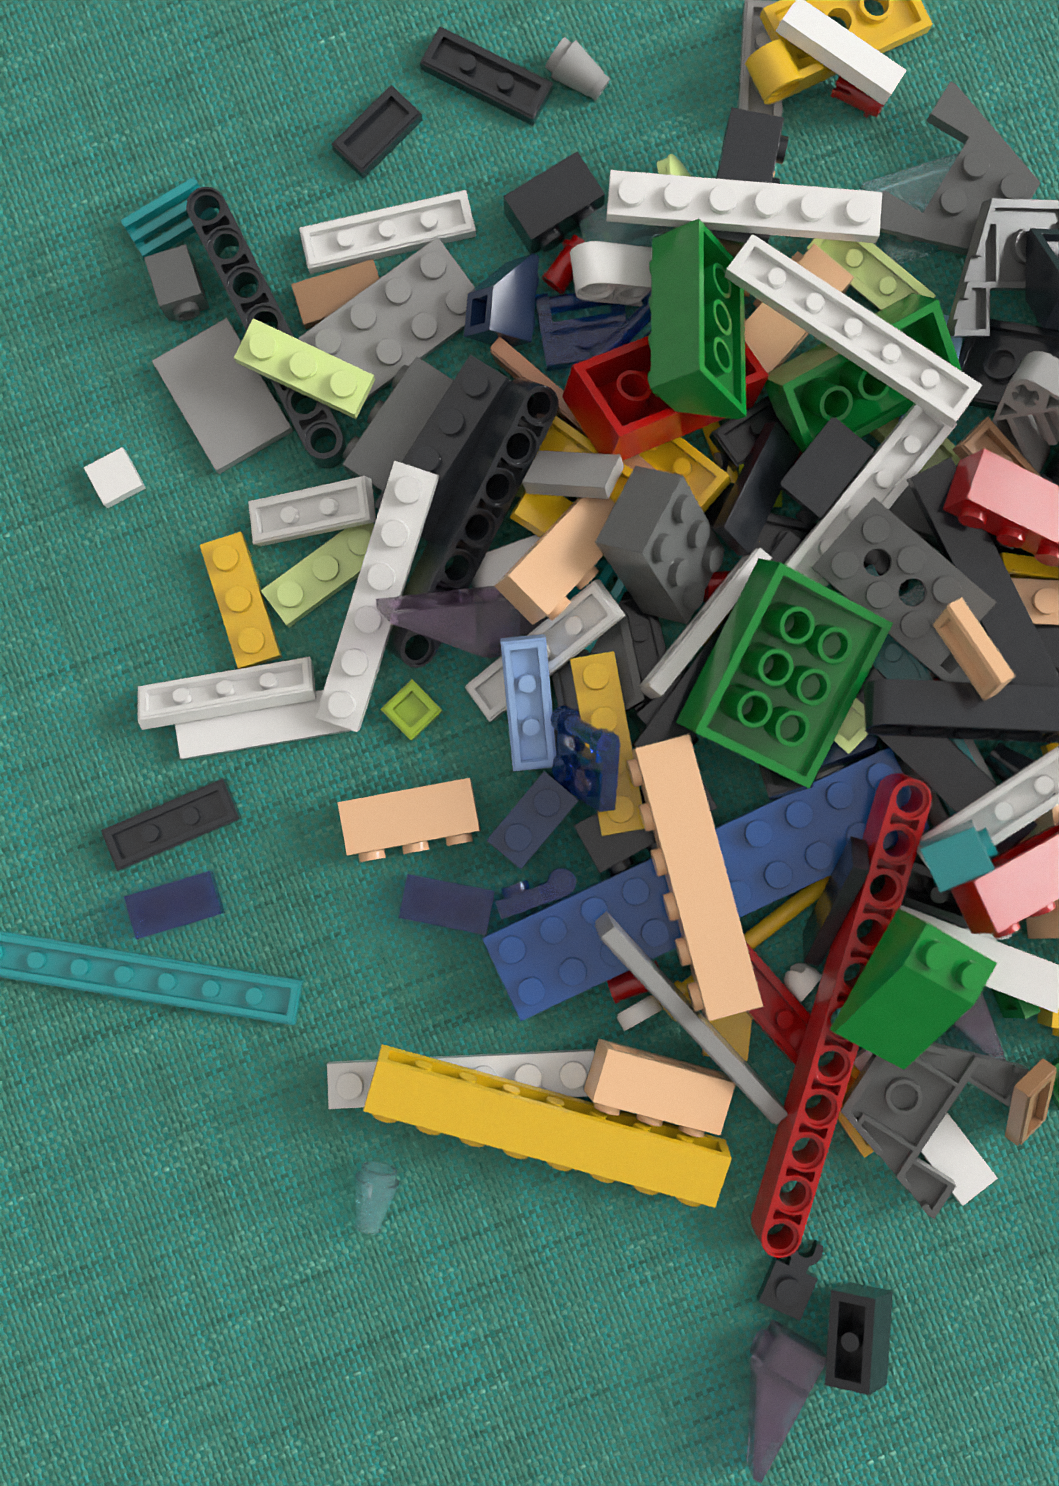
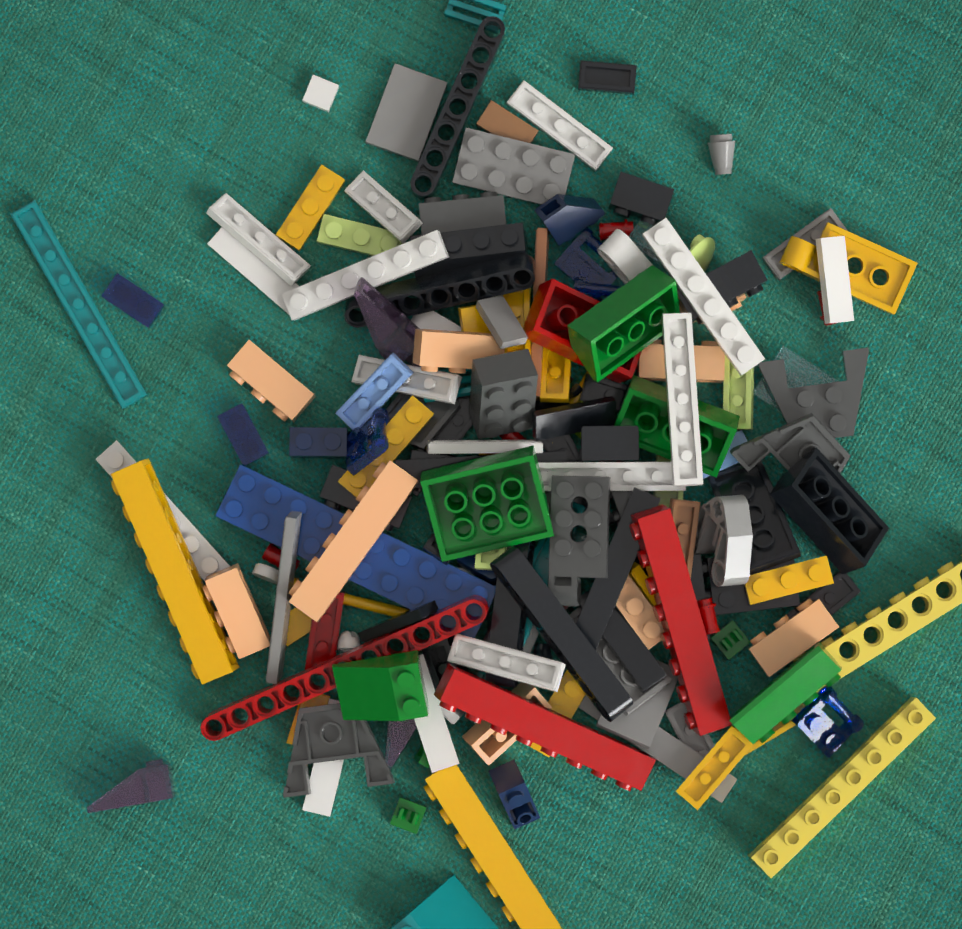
camera: 45 degrees right, 0 degrees up
(171, 824) = (171, 266): black tile -> none
(177, 283) = (443, 44): dark grey brick -> none
(304, 368) = (450, 146): yellowish green plate -> none
(374, 1193) = (72, 515): clear light blue cone -> none
(411, 710) = (325, 338): lime tile -> none
(486, 76) = (682, 109): black tile -> none
(522, 897) = (277, 468): clear blue plate -> none
(788, 1282) = (194, 755): black plate -> none
(858, 1338) = (196, 806): black brick -> none
(958, 855) = (464, 655): teal brick -> none
(973, 649) = (568, 581): light nougat tile -> none
(1030, 1102) = (378, 797): medium nougat tile -> none

